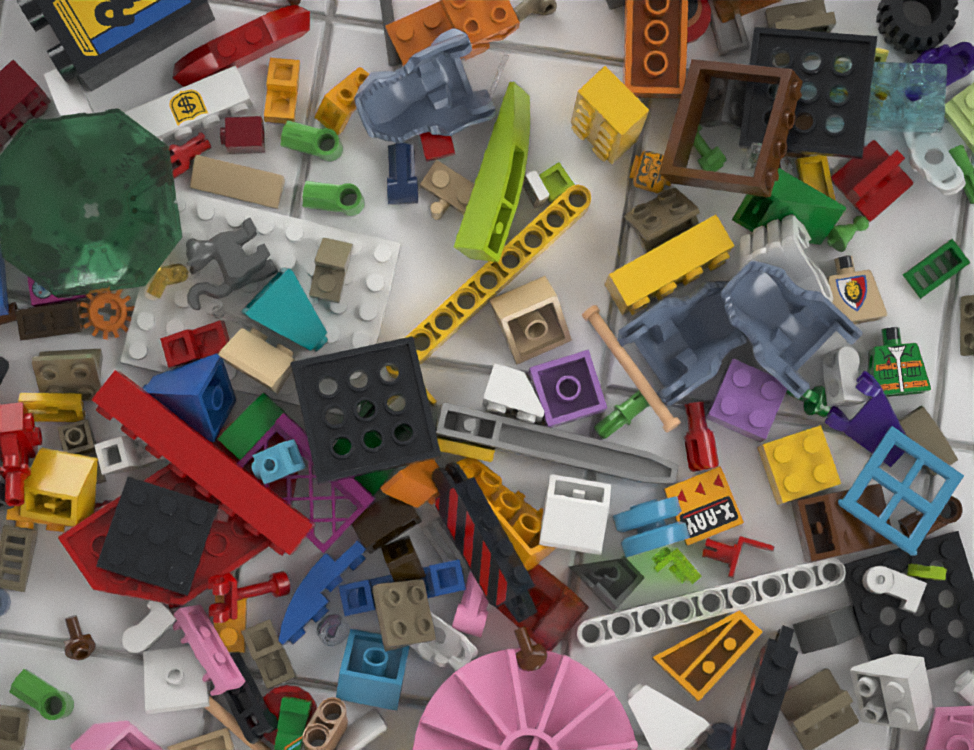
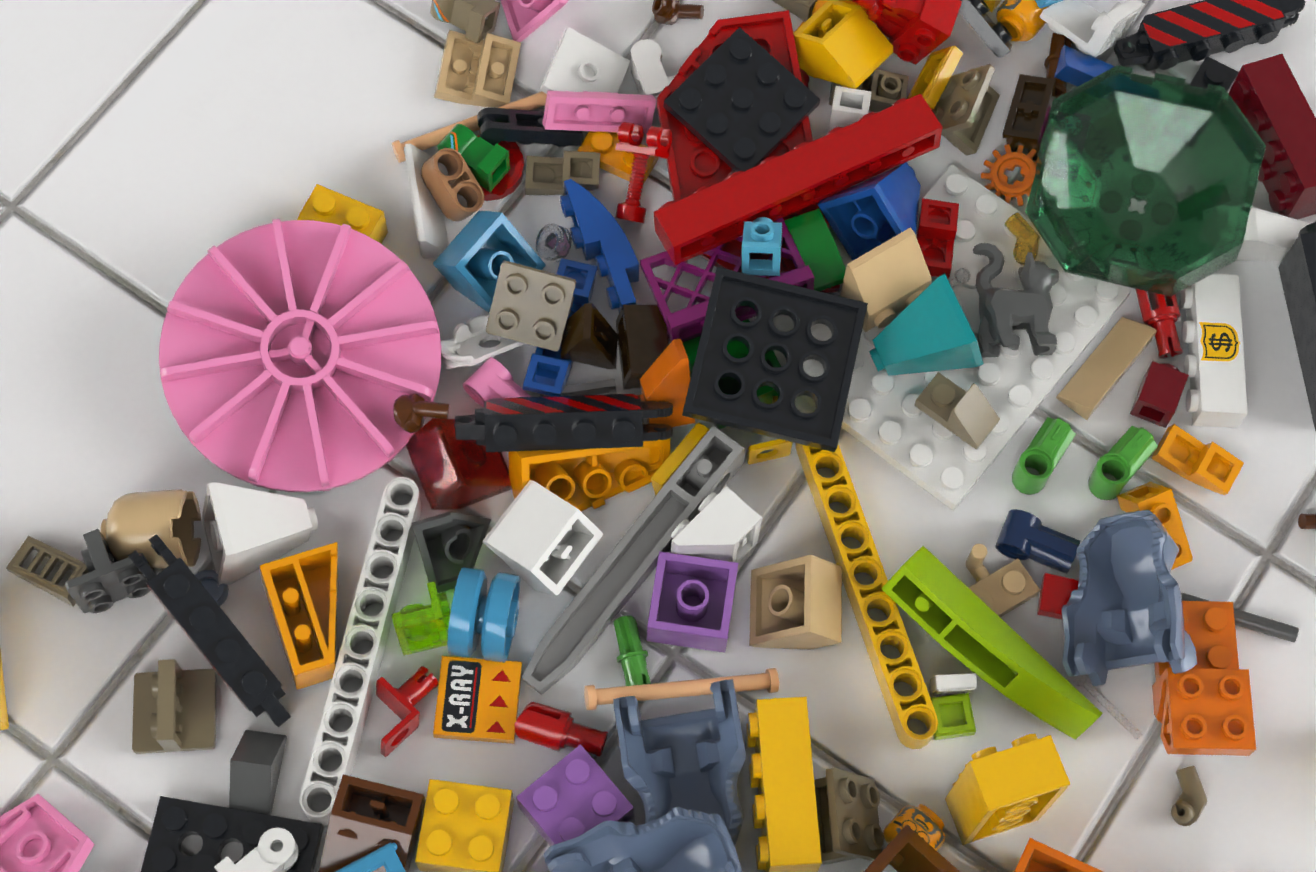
camera: 120 degrees right, 15 degrees down
(243, 44) = (1271, 442): red brick -> none
(893, 691) = (139, 802): white slope -> none

